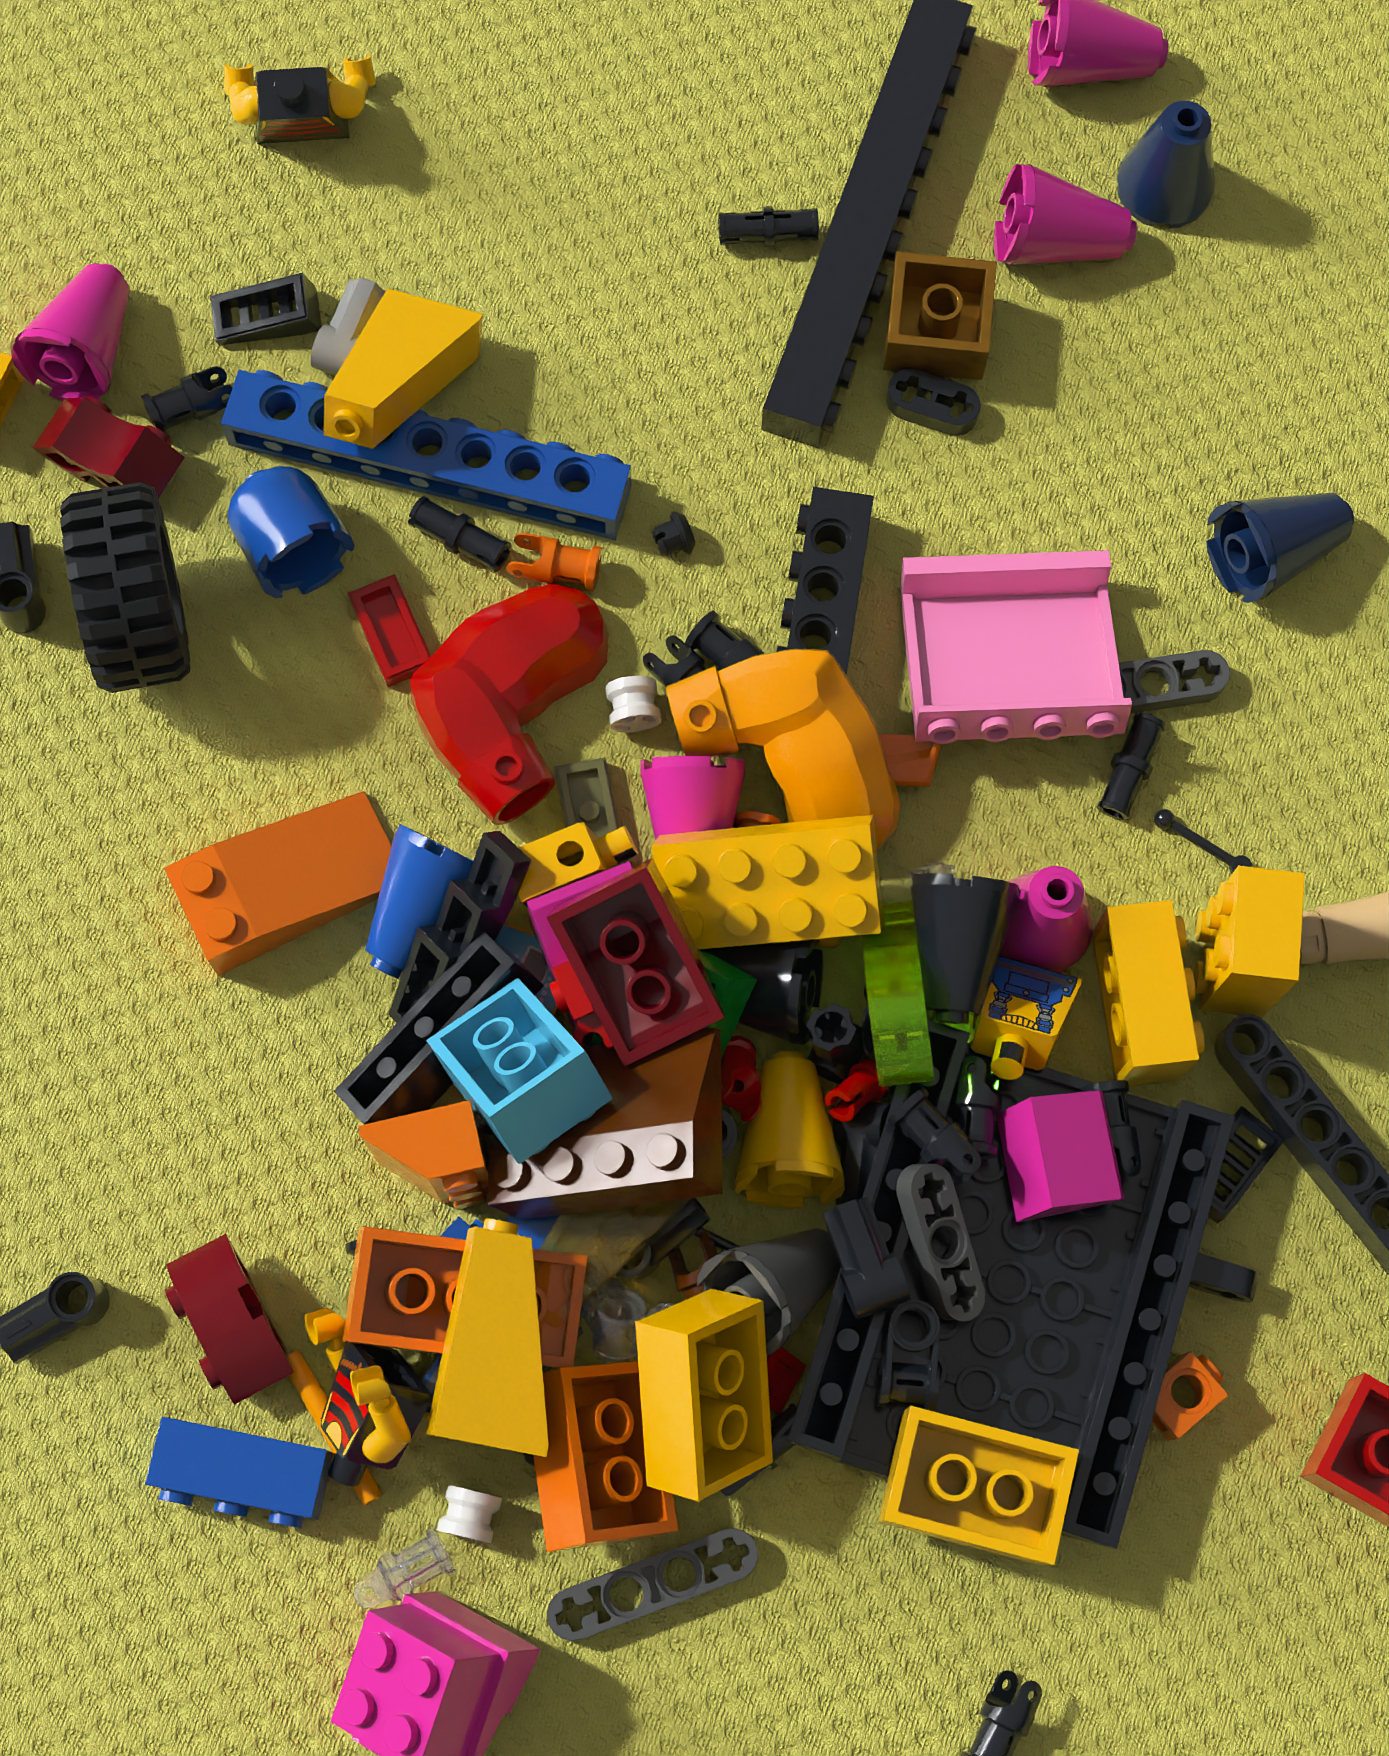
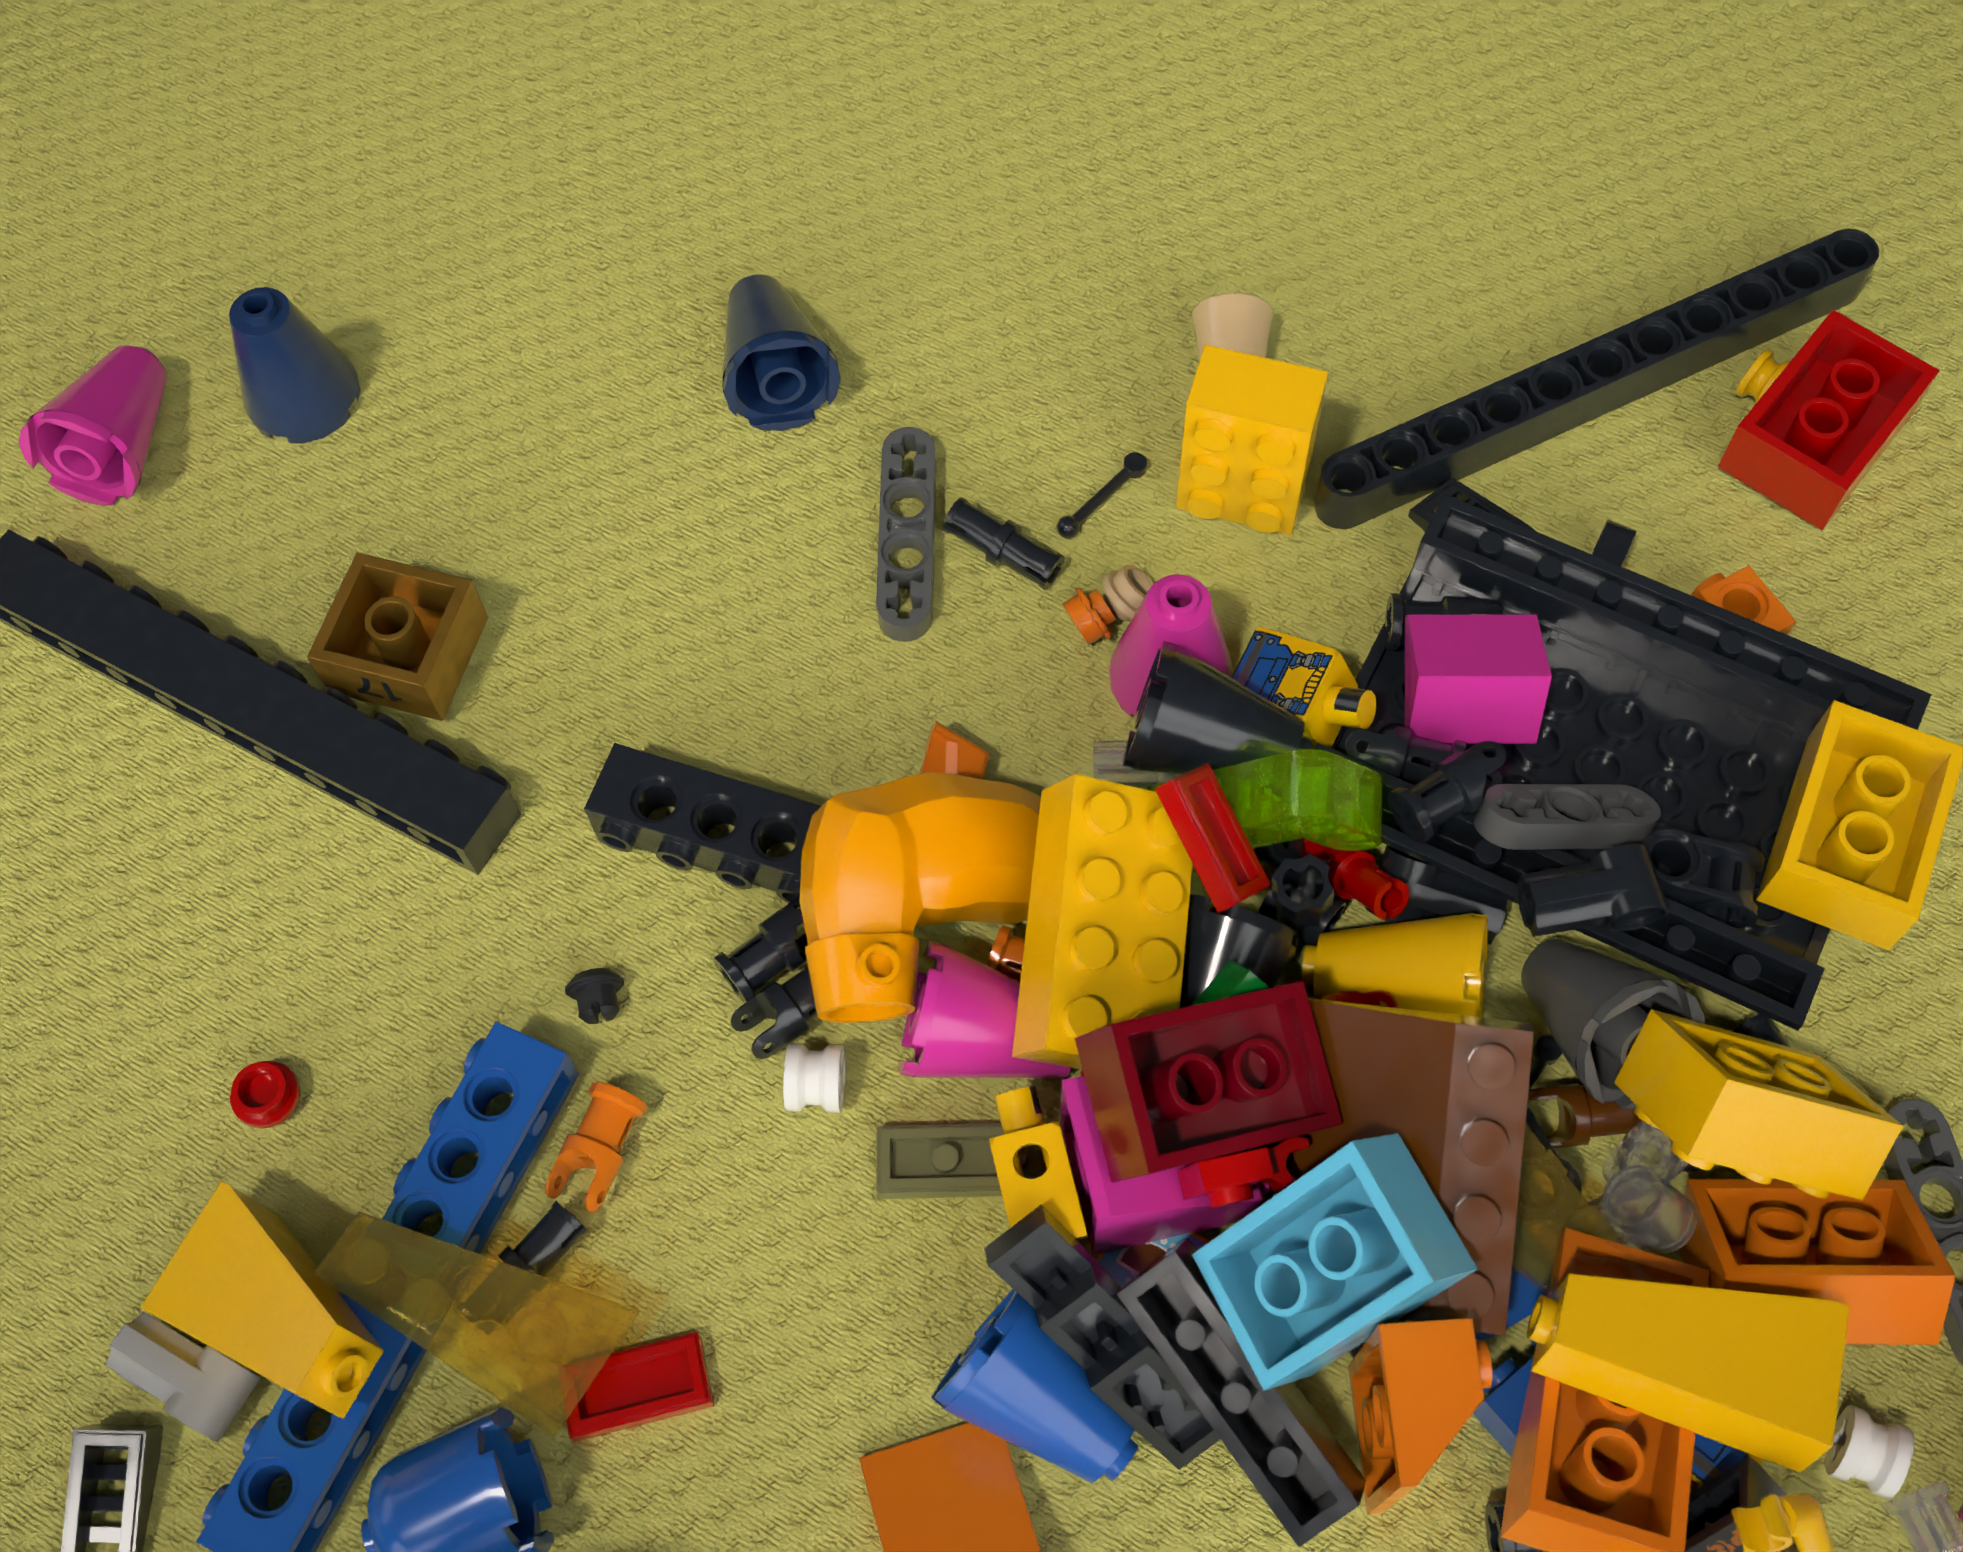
camera: 75 degrees left, 10 degrees down
(409, 521) = (489, 1321): none -> clear yellow wing
(499, 676) = (745, 1253): red piece -> none
(559, 326) = (264, 1094): none -> red plate
(768, 226) = (211, 816): black pin -> none
(847, 945) = (1212, 837): none -> red tile
(933, 401) = (505, 675): black beam -> none
(1011, 647) = (840, 636): bright pink panel -> none
(1058, 221) = (315, 500): dark pink cone -> none
(1074, 845) = (1090, 614): none -> orange plate
(1103, 876) = (1125, 590): none -> tan plate
(1146, 993) = (1292, 562): yellow brick -> none

